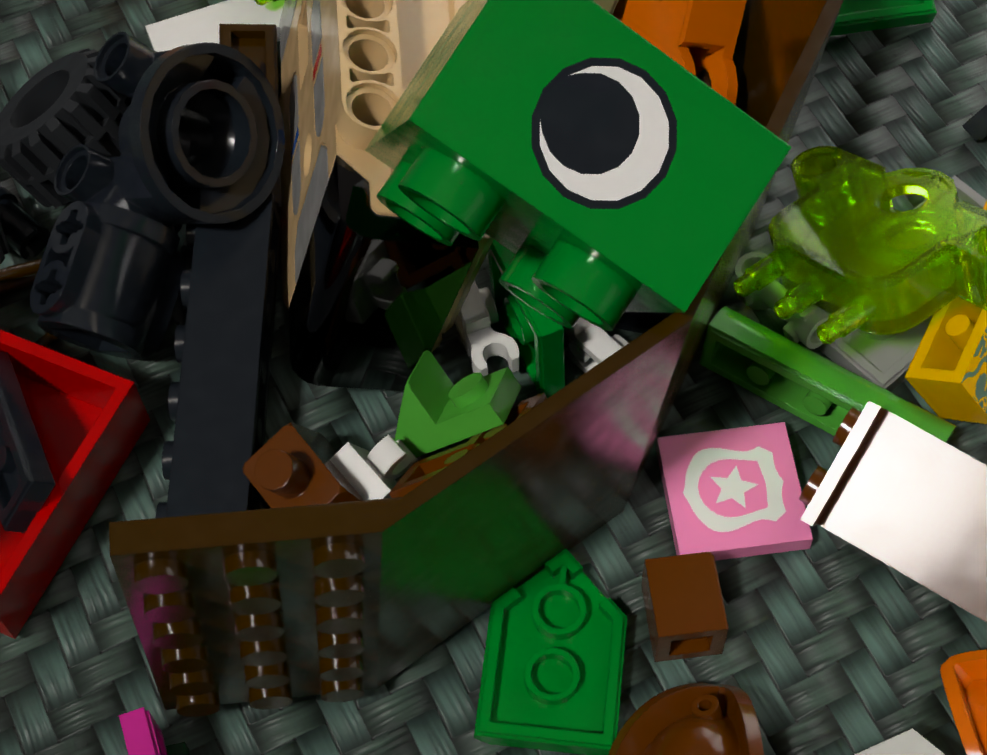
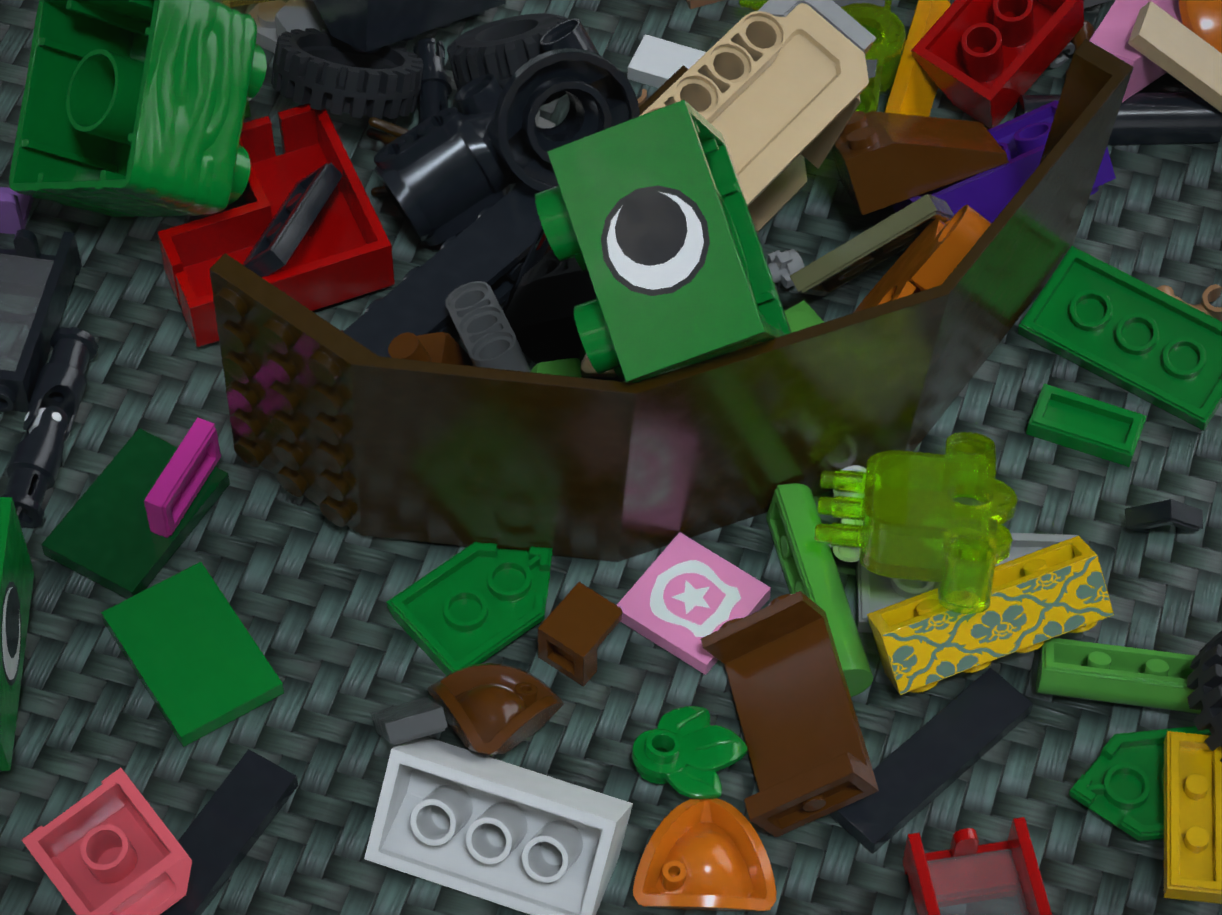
camera: 40 degrees right, 5 degrees down
(337, 399) = (485, 328): none -> dark grey beam
(858, 83) = (1086, 425): none -> green tile
(888, 624) = (687, 752): none -> green plate

